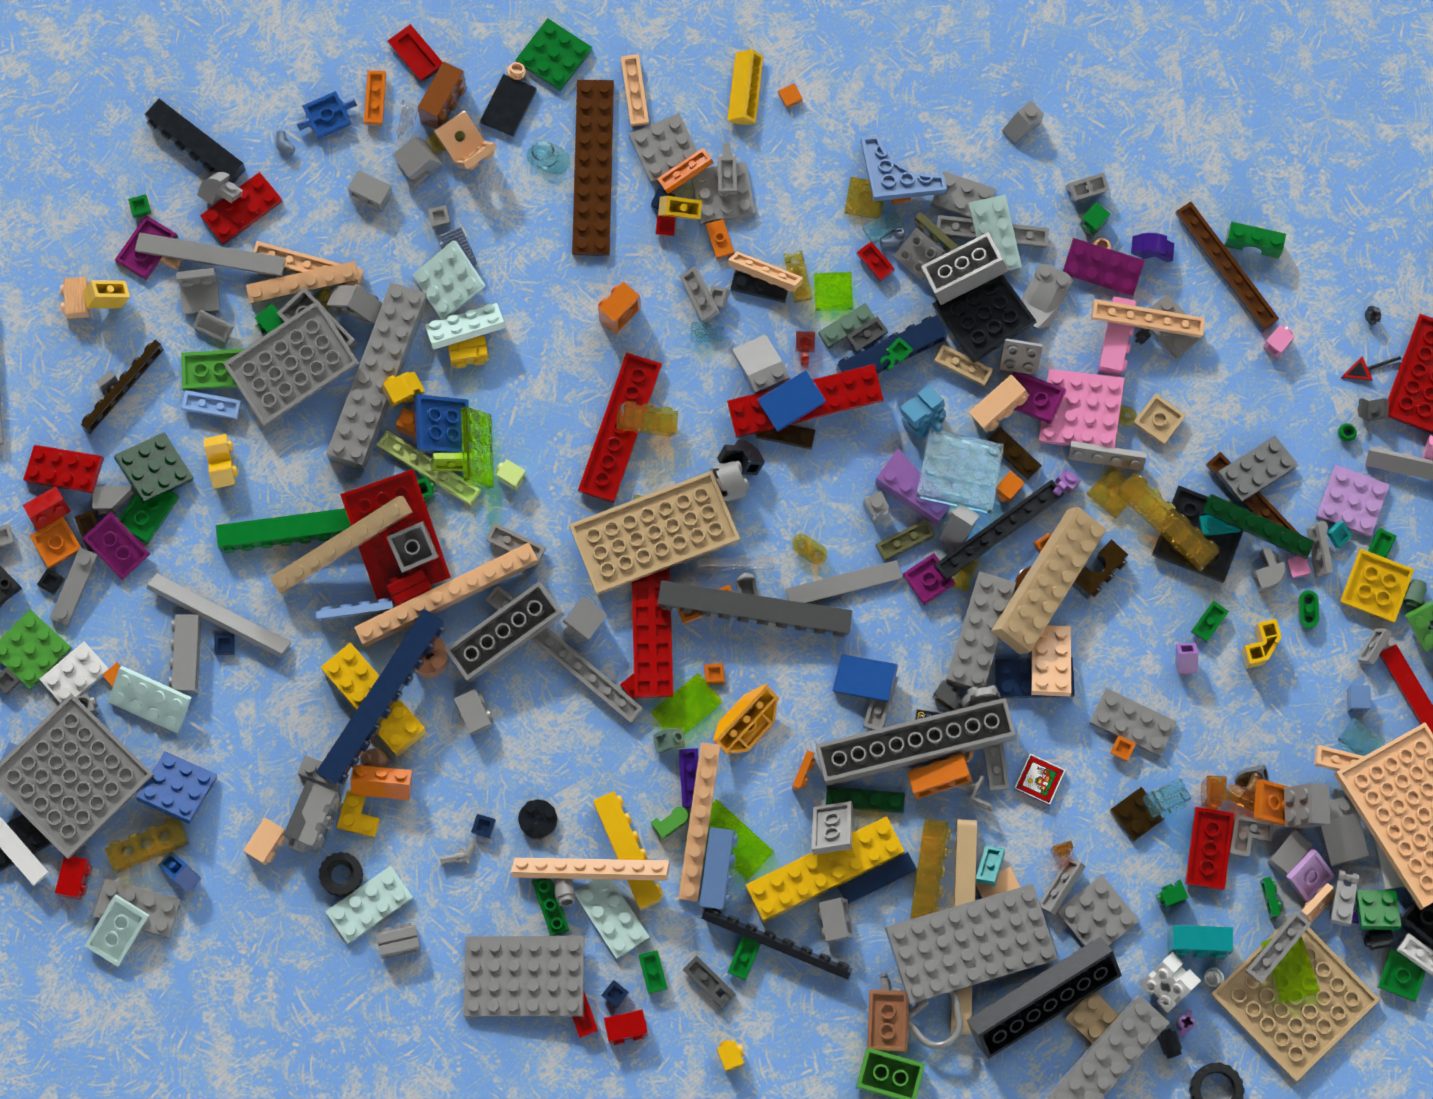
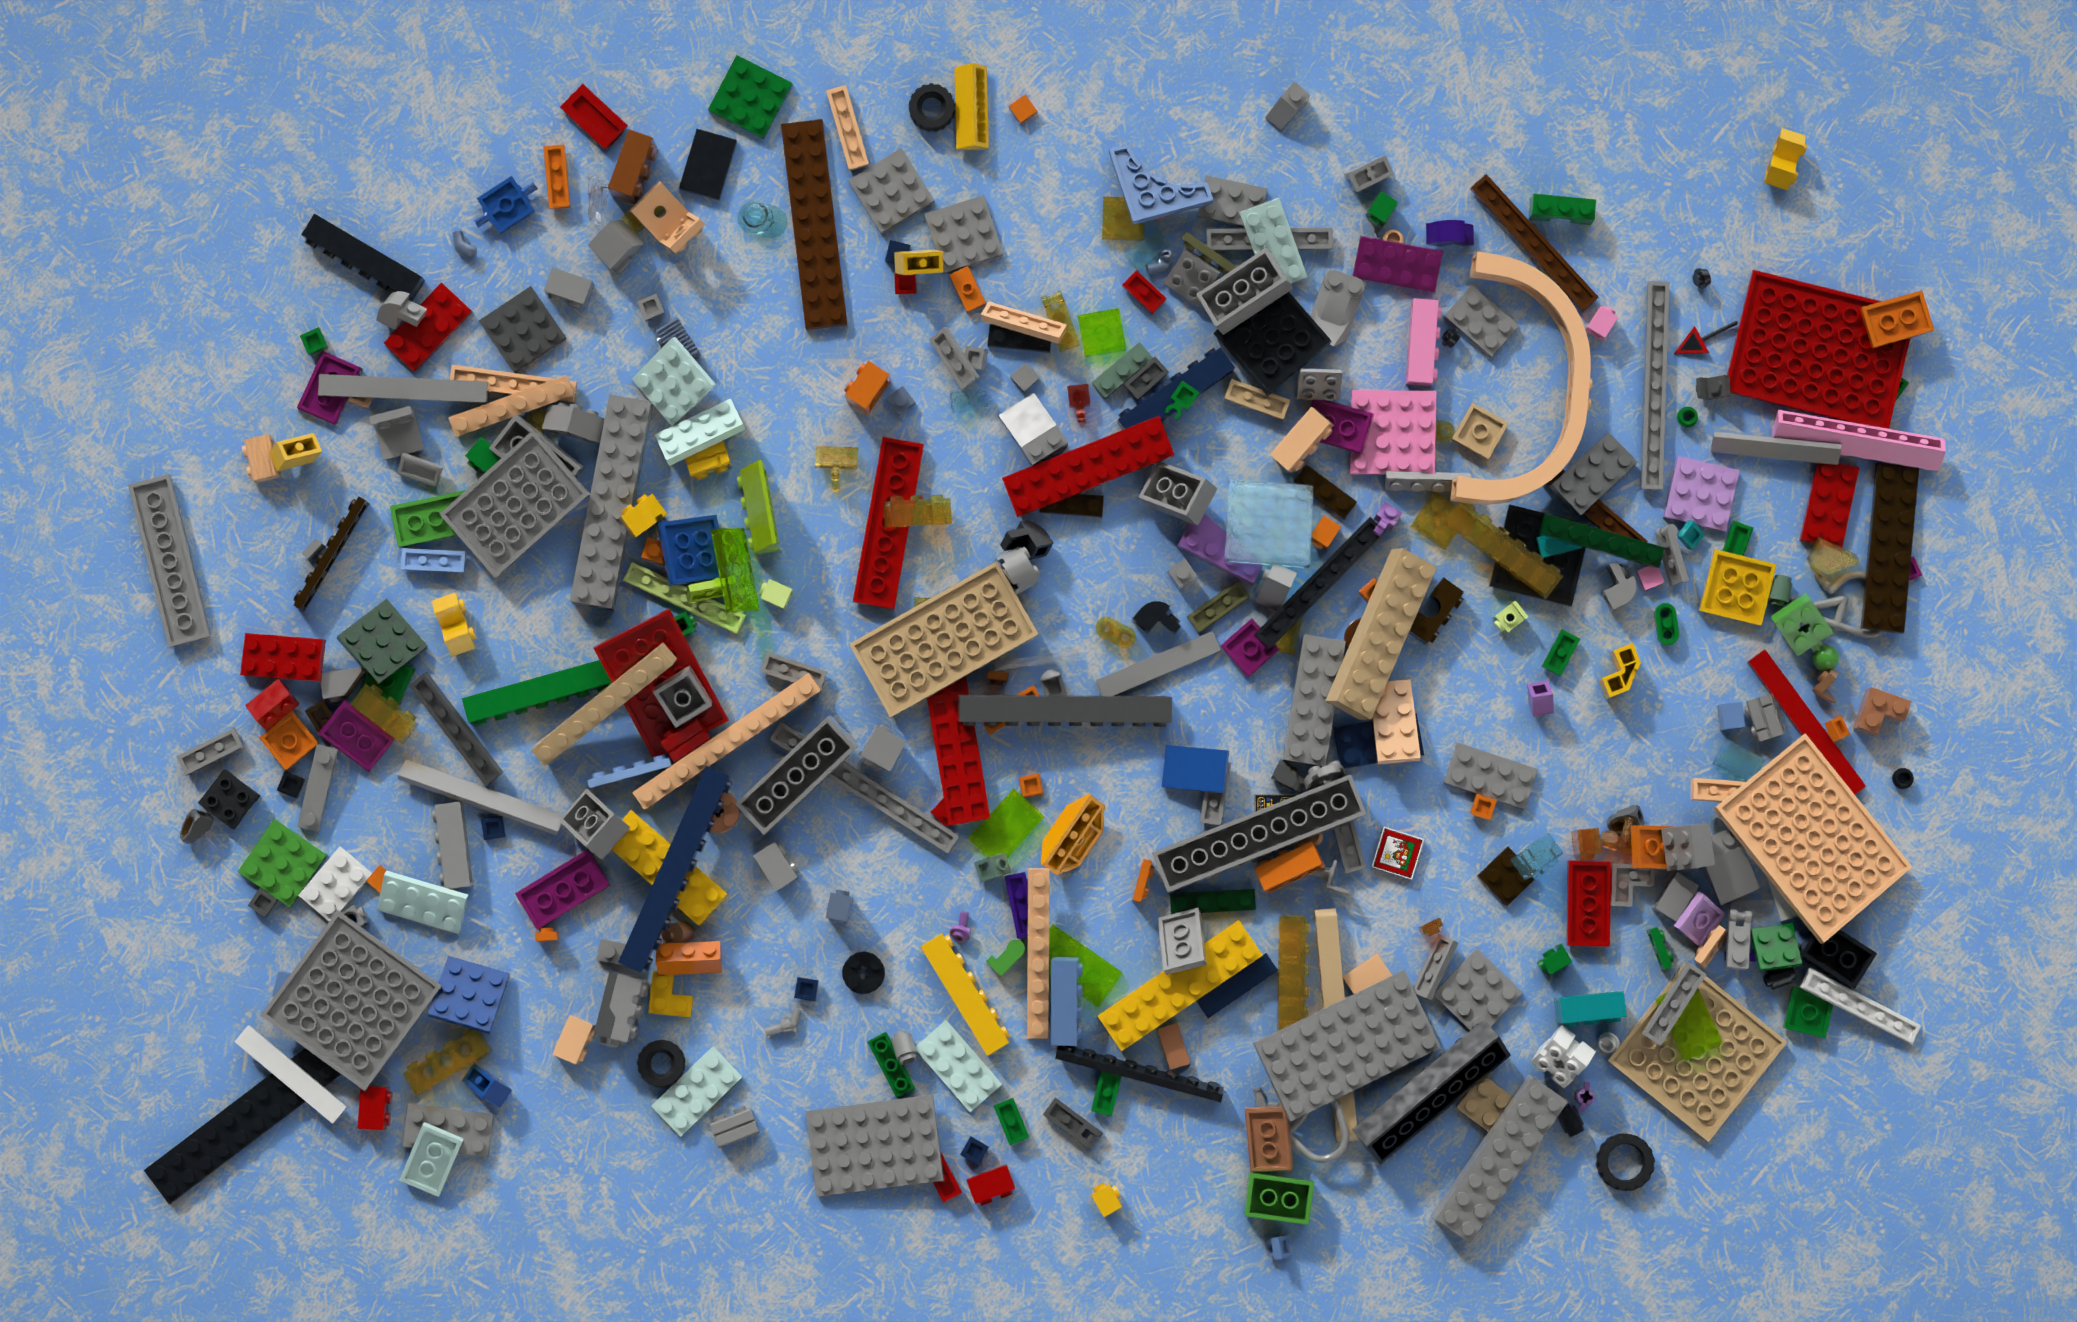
camera: 10 degrees left, 10 degrees up
(145, 528) = (385, 713): none -> clear yellow brick
(206, 552) = (456, 729): none -> dark grey plate
(256, 745) = (547, 934): none -> orange plate
(277, 706) = (562, 889): none -> magenta plate
(315, 649) = (594, 824): none -> light grey brick
(323, 221) = (522, 329): none -> dark grey plate
(507, 397) = (759, 509): none -> lime slope
(516, 71) = (711, 123): light nougat plate -> none
(525, 754) = (839, 906): none -> sand blue brick
(581, 366) = (836, 459): none -> clear yellow plate
(590, 869) = (929, 1022): light nougat plate -> none
(632, 795) = (961, 930): none -> medium lavender plate
(646, 325) = (900, 400): none -> sand blue plate
(685, 170) = (918, 216): orange plate -> none
(697, 573) = (997, 677): none -> reddish brown plate
(710, 69) = (931, 91): none -> black tyre
(727, 171) = (965, 212): light grey hinge -> none
(759, 320) = (1024, 377): none -> light grey tile
(791, 401) = (1073, 470): blue tile -> none
(811, 925) = (1173, 1046): none -> nougat tile
(835, 920) = (1199, 1039): light grey brick -> none
(847, 536) = (1153, 612): none -> black brick
(882, 433) = (1177, 493): none -> light grey brick
(924, 412) = (1221, 461): dark azure brick -> none
(990, 865) = (1356, 956): teal plate -> none
(1147, 318) = (1453, 320): light nougat plate -> none
(1164, 591) = (1516, 611): none -> yellowish green brick
(1240, 317) = (1579, 383): none -> light nougat arch
(1321, 402) = (1655, 385): none -> light grey plate
(1374, 646) = (1741, 656): light grey plate -> none
(1389, 703) = (1764, 717): none -> light grey brick

